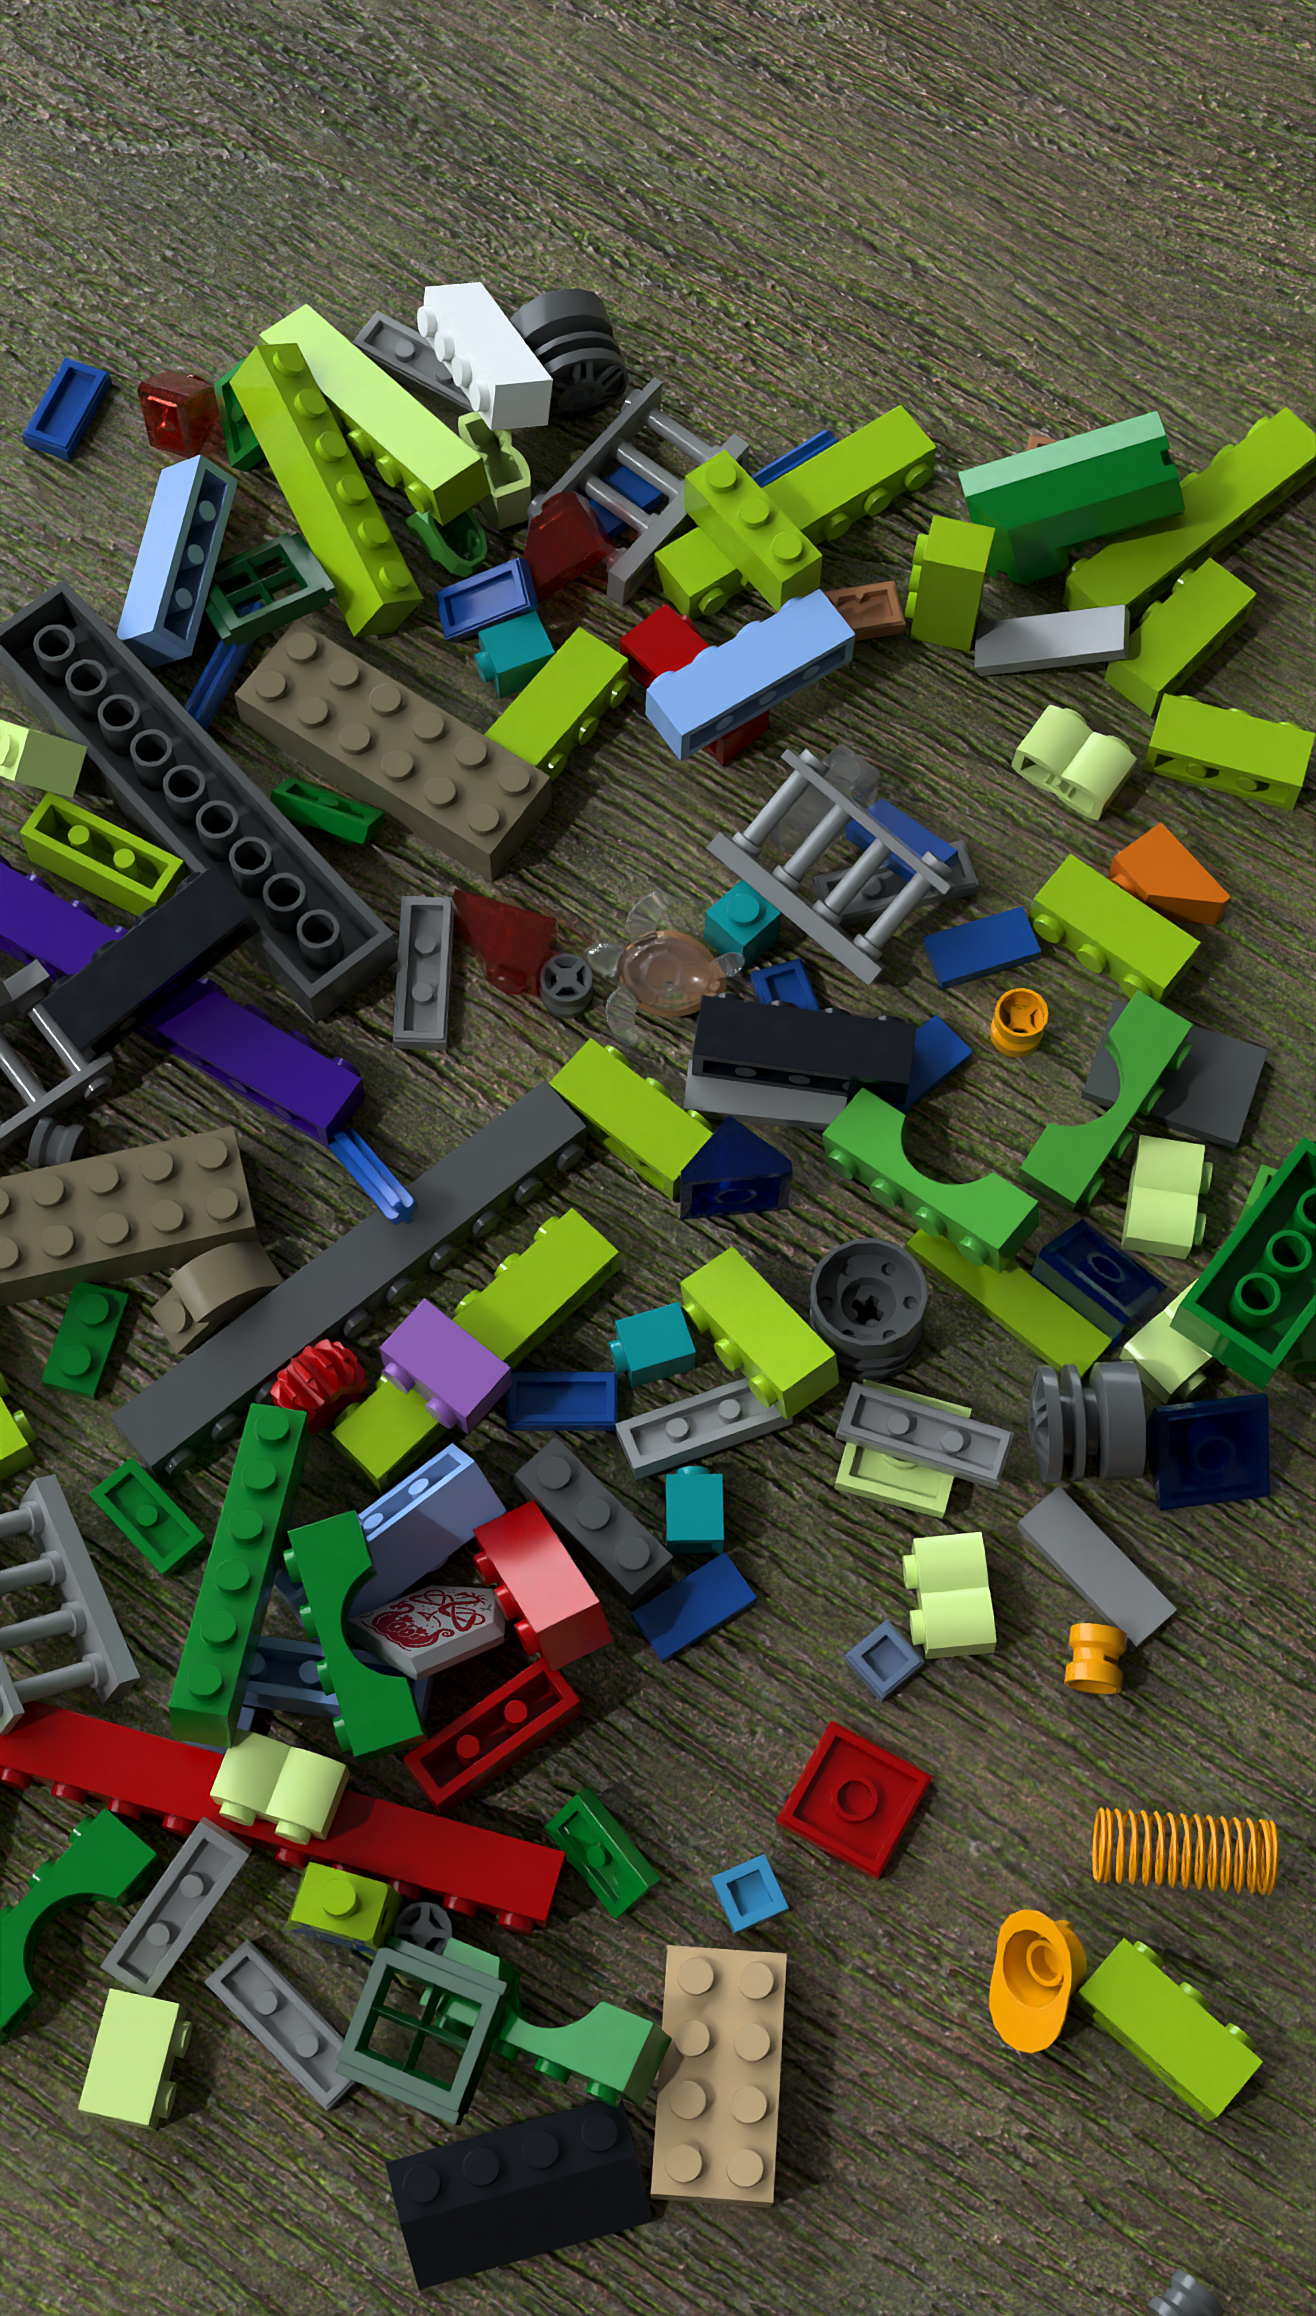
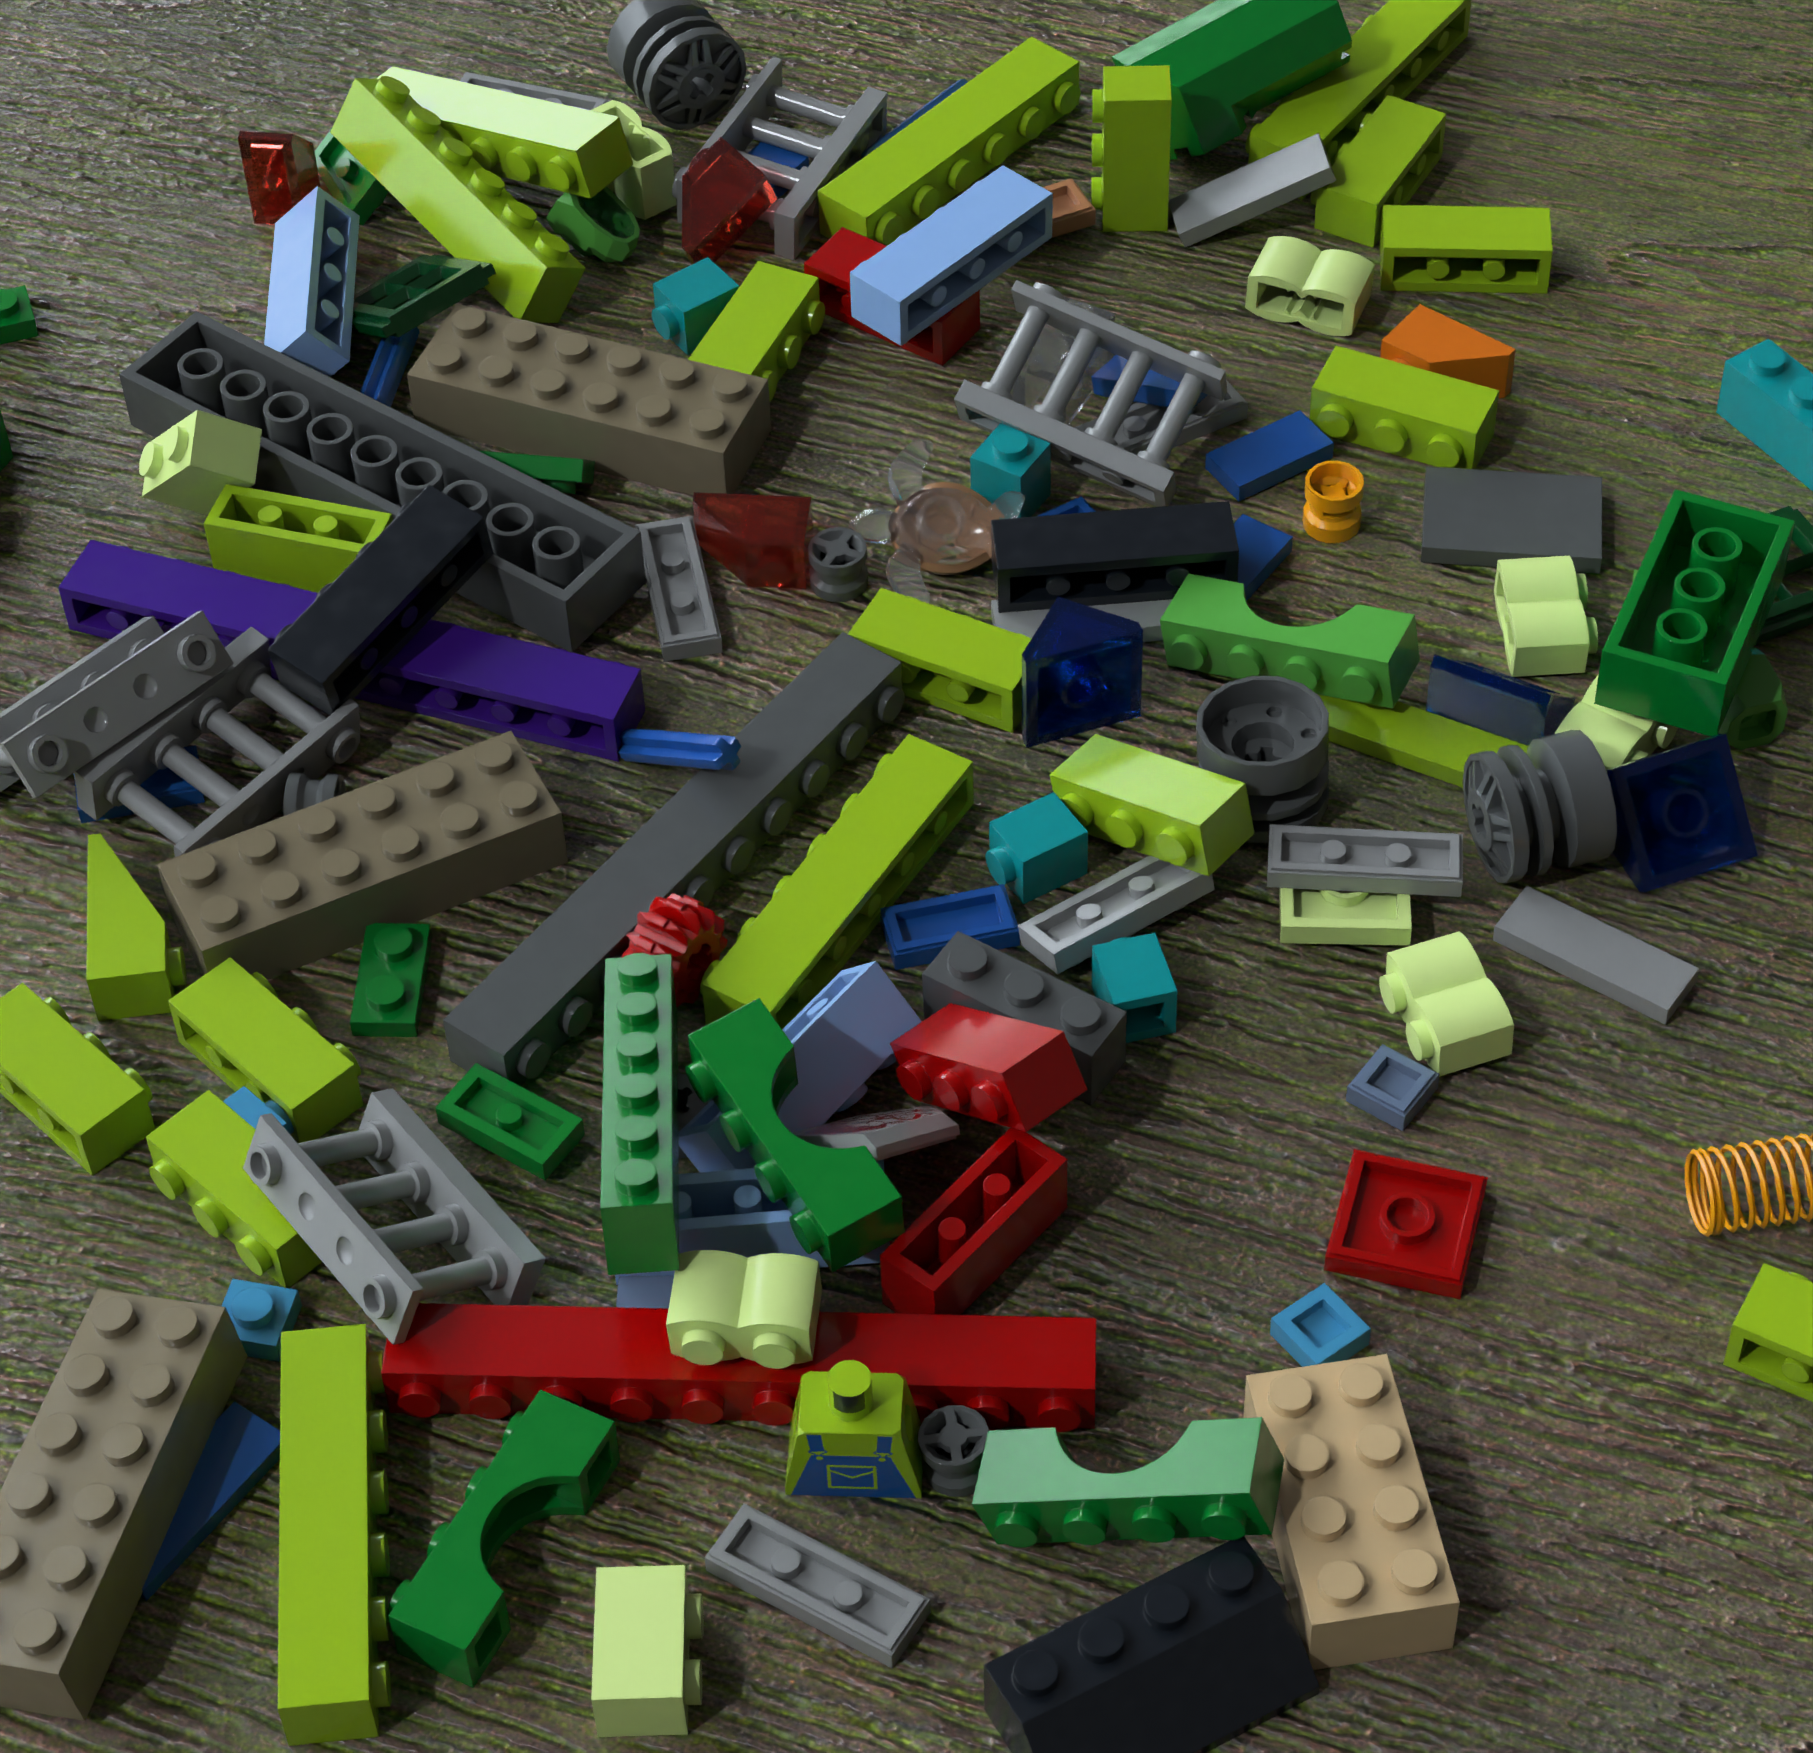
camera: 10 degrees left, 20 degrees down
(67, 409) = (158, 206): blue tile -> none
(176, 1908) = (653, 1470): light grey plate -> none
(212, 1290) = (524, 888): dark tan brick -> none
(400, 2079) = (983, 1583): piece -> none
(444, 1367) = (816, 884): medium lavender brick -> none
(486, 356) = (594, 64): white brick -> none
(486, 600) = (653, 256): blue tile -> none
(602, 1853) = (1140, 1325): green plate -> none
(693, 1607) = (1161, 1081): blue tile -> none
(752, 530) = (912, 139): lime brick -> none
(1033, 1979) = (1675, 1332): light orange piece -> none
(1069, 1158) = (1471, 486): bright green arch -> none
(1095, 1658) = (1627, 1017): light orange wheel -> none

